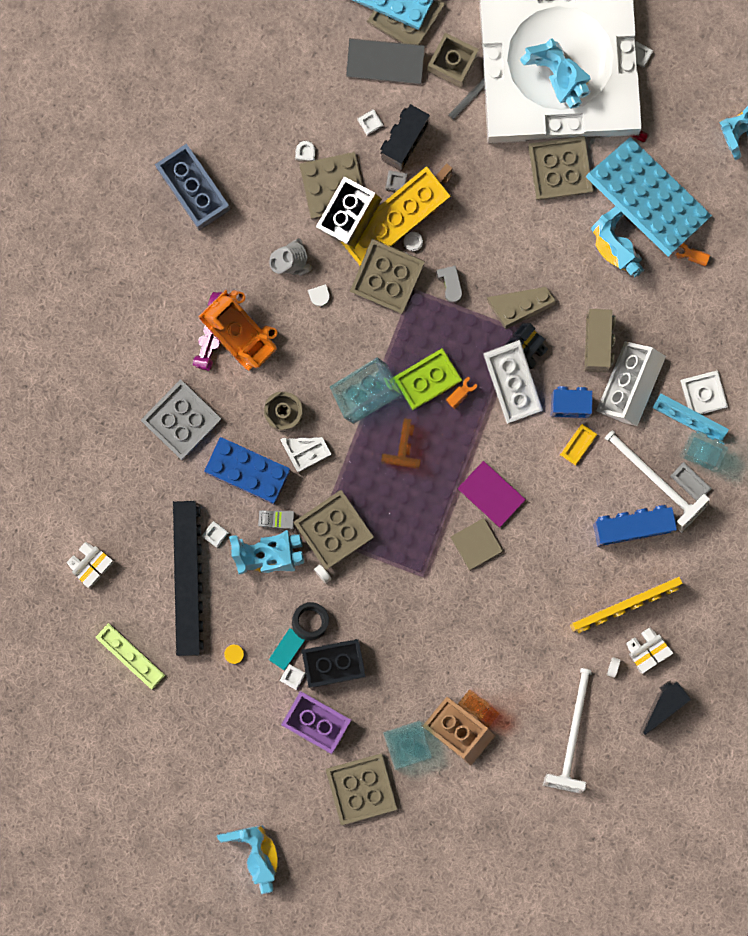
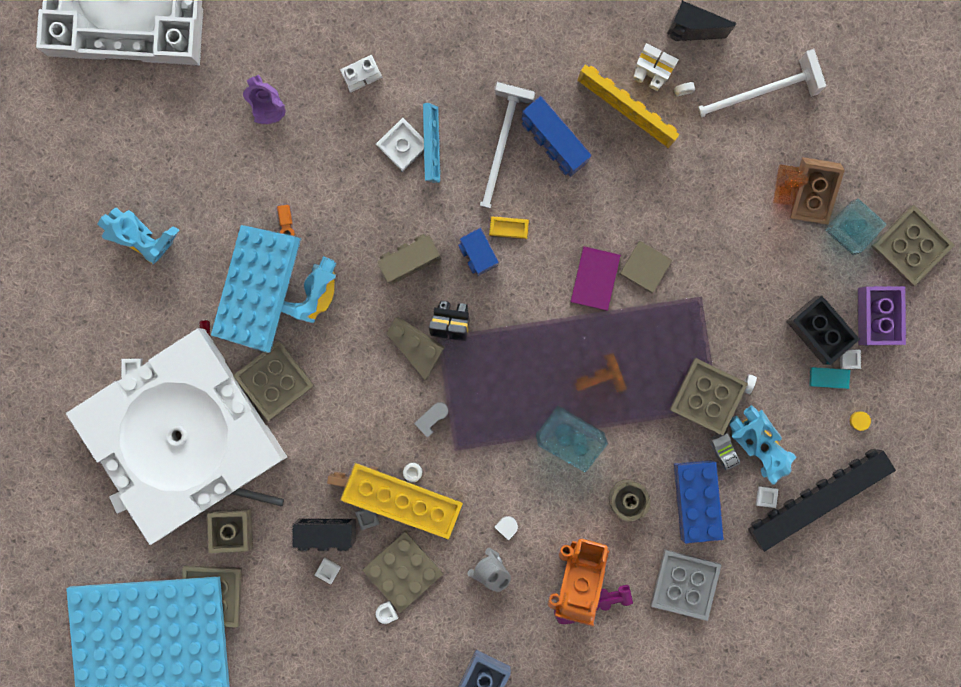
camera: 125 degrees left, 5 degrees up
(82, 568) = (859, 588): white hips -> none
(130, 656) = (913, 509): yellowish green tile -> none
(305, 451) = (651, 460): white wing -> none
(311, 606) = (810, 364): black tyre -> none
(349, 212) = (421, 545): black brick -> none
(385, 60) = (264, 590): dark grey tile -> none
(387, 276) = (457, 478): dark tan plate -> none
(427, 379) = (528, 390): lime tile -> none
(460, 394) = (525, 354): orange bar -> none
(513, 381) = (488, 314): white tile -> none
(568, 78) = (187, 418): medium azure hips -> none
(631, 383) = (429, 211): white slope -> none
(690, 481) = (486, 113): light grey tile -> none
(703, 450) = (455, 113): clear light blue brick -> none

